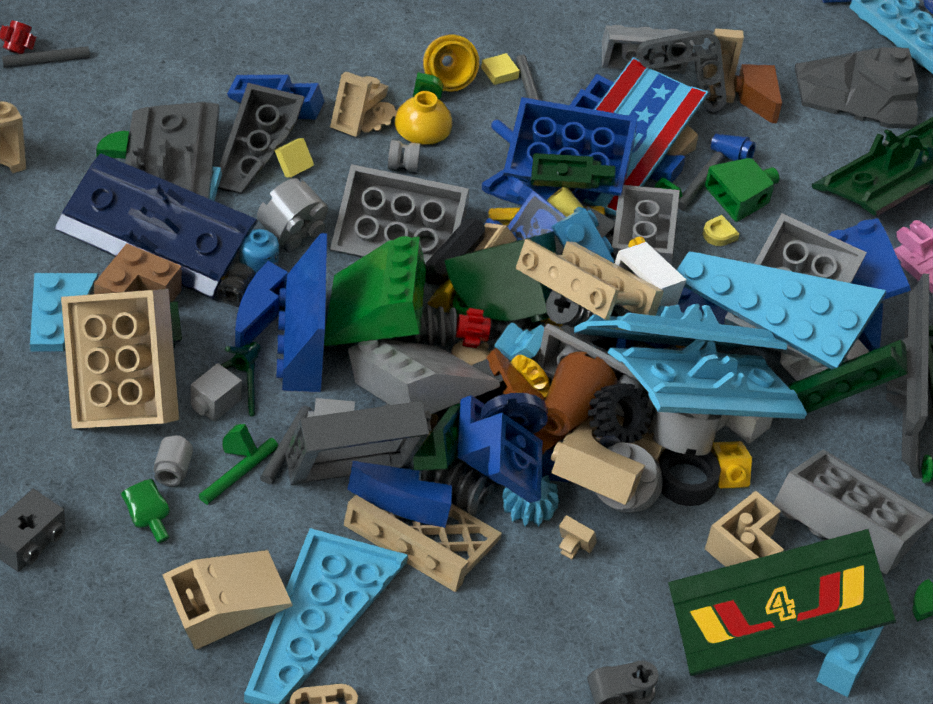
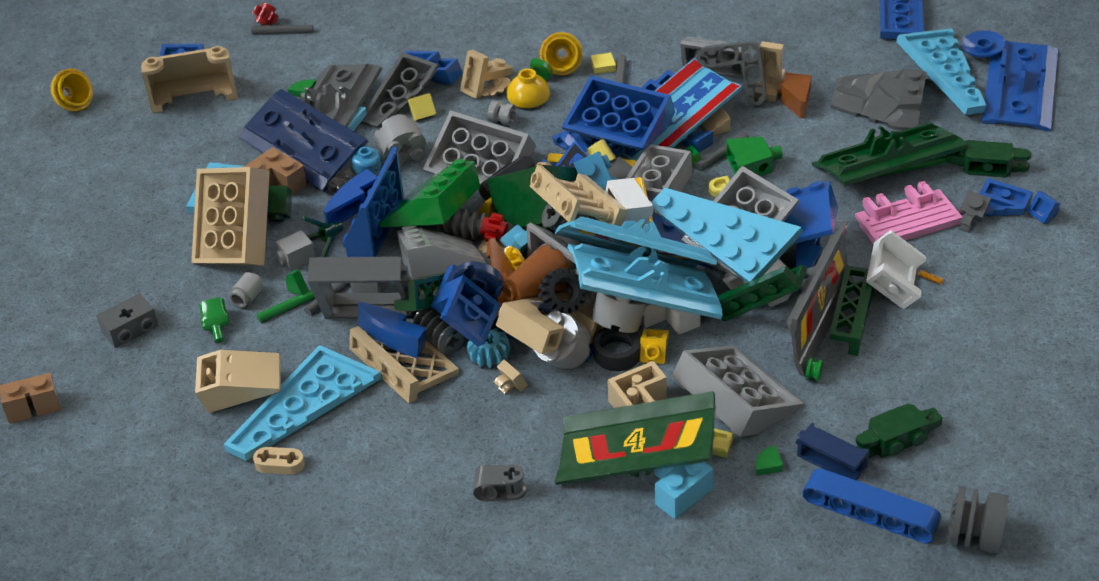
camera: 25 degrees right, 5 degrees down
(570, 171) = (607, 129): dark green hinge -> none
(733, 146) = (758, 129): blue cone -> none

